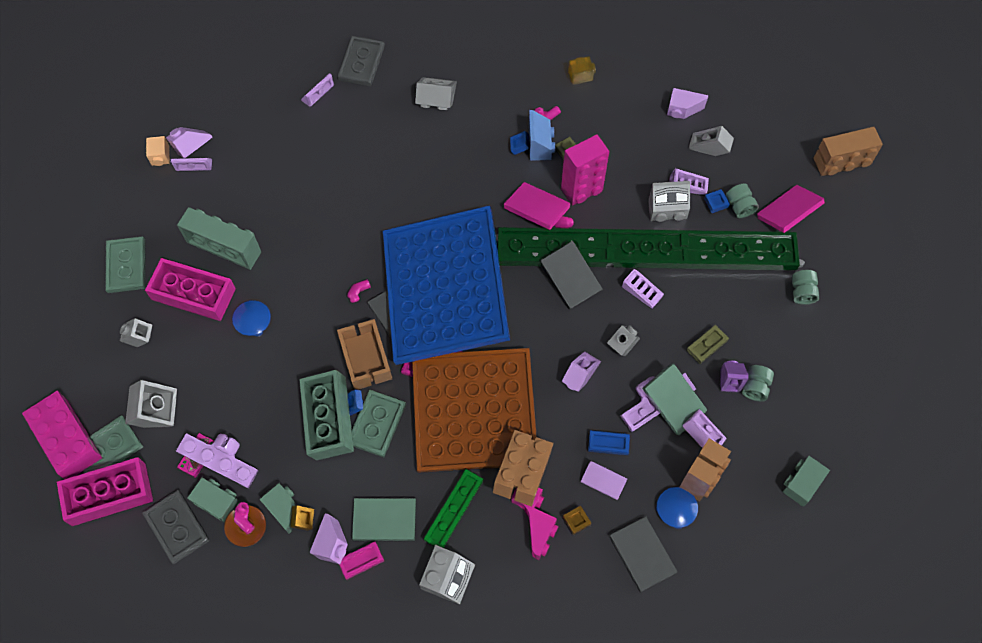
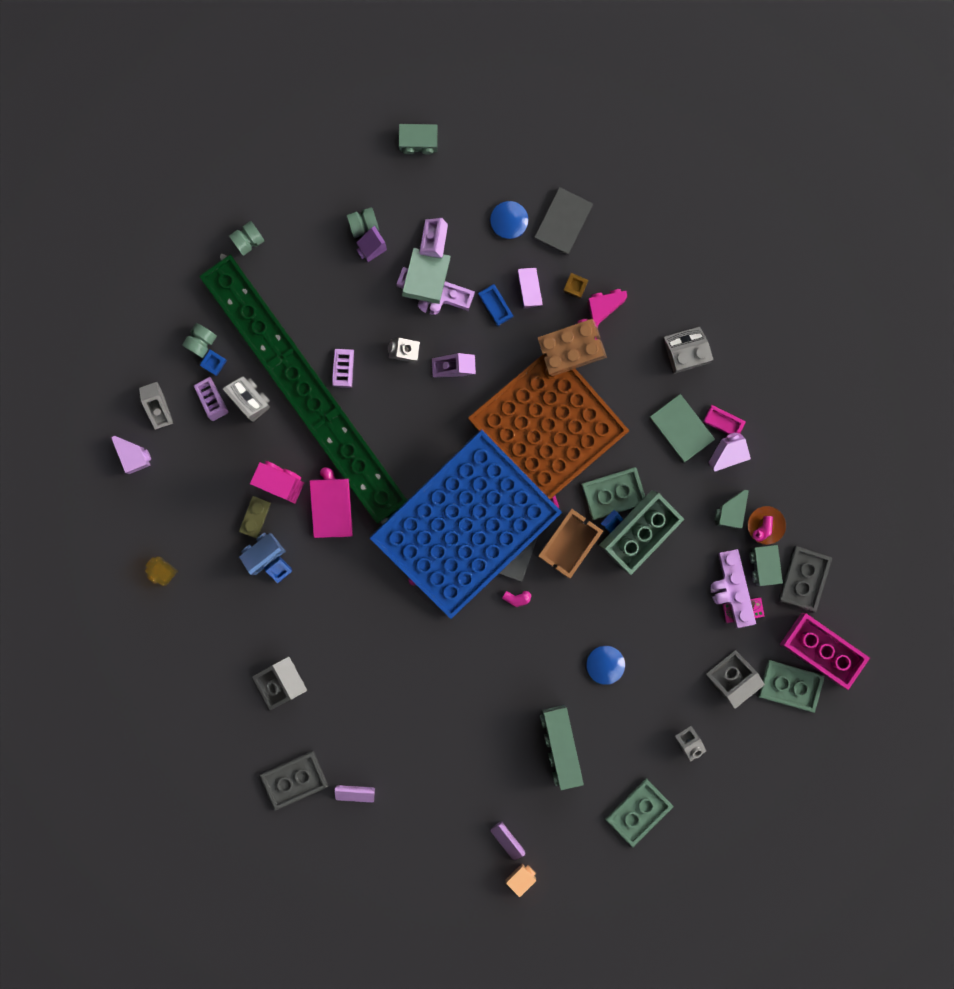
camera: 130 degrees left, 20 degrees up
(62, 435) = (811, 725): dark pink brick -> none
(187, 140) = (491, 860): lavender slope -> none
(190, 289) = (622, 732): dark pink brick -> none
(302, 518) = (728, 488): pearl gold plate -> none
(453, 509) = (636, 381): green plate -> none
(550, 114) = (231, 569): dark pink arm -> none
(571, 275) = (376, 432): dark grey tile -> none
(706, 470) = (479, 204): medium nougat piece -> none
(707, 344) = (355, 283): olive plate -> none
(790, 208) = (177, 296): dark pink tile -> none
(847, 151) = (86, 280): medium nougat piece -> none

